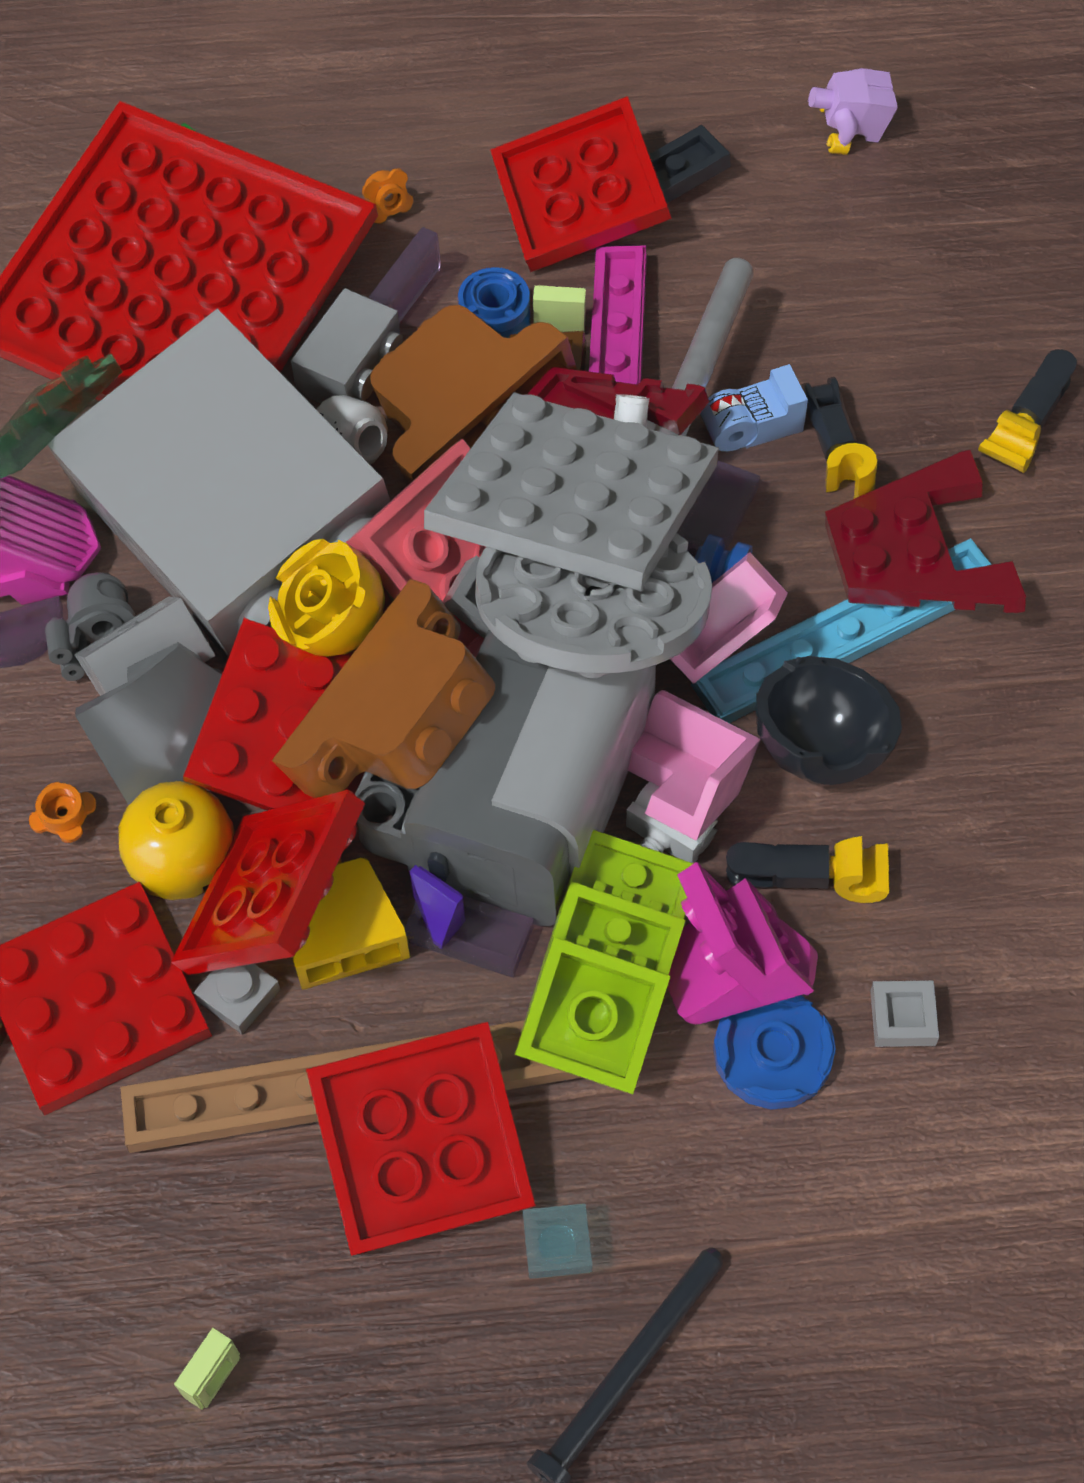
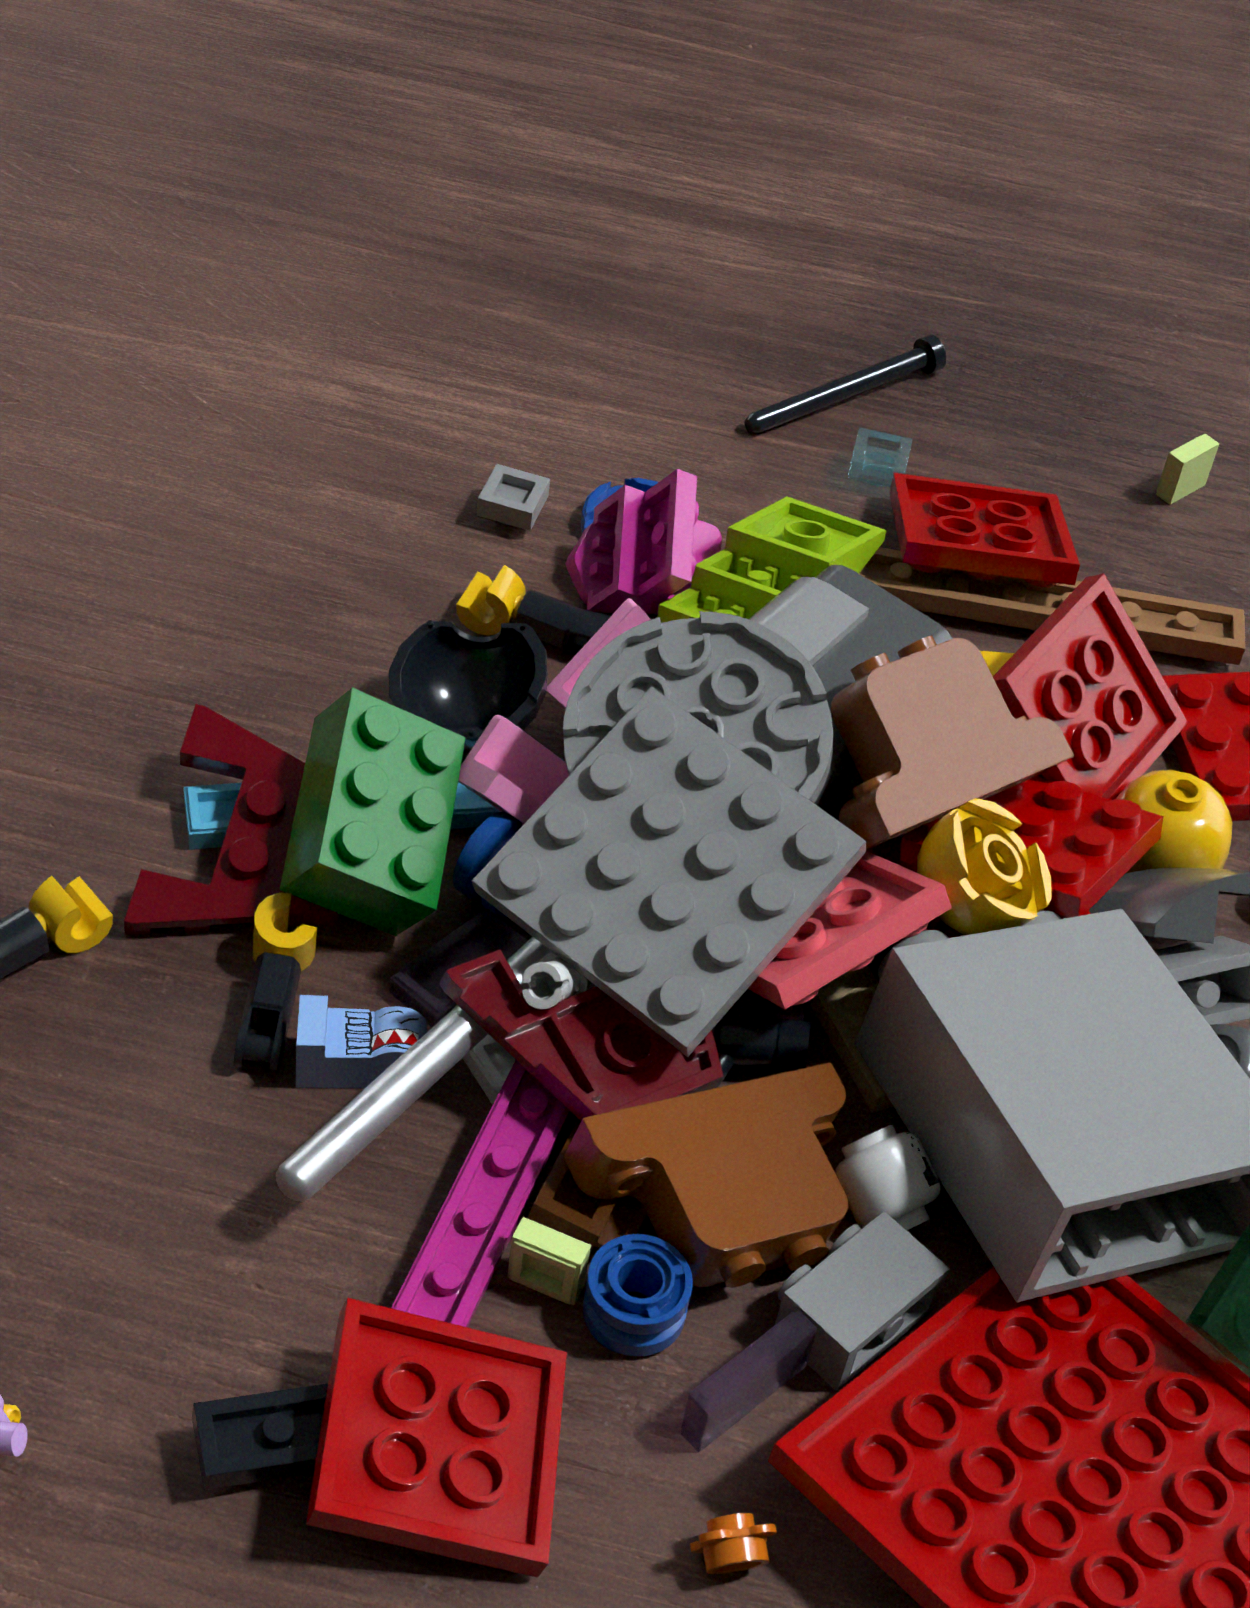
camera: 170 degrees left, 15 degrees down
(832, 543) = (374, 813): none -> green brick

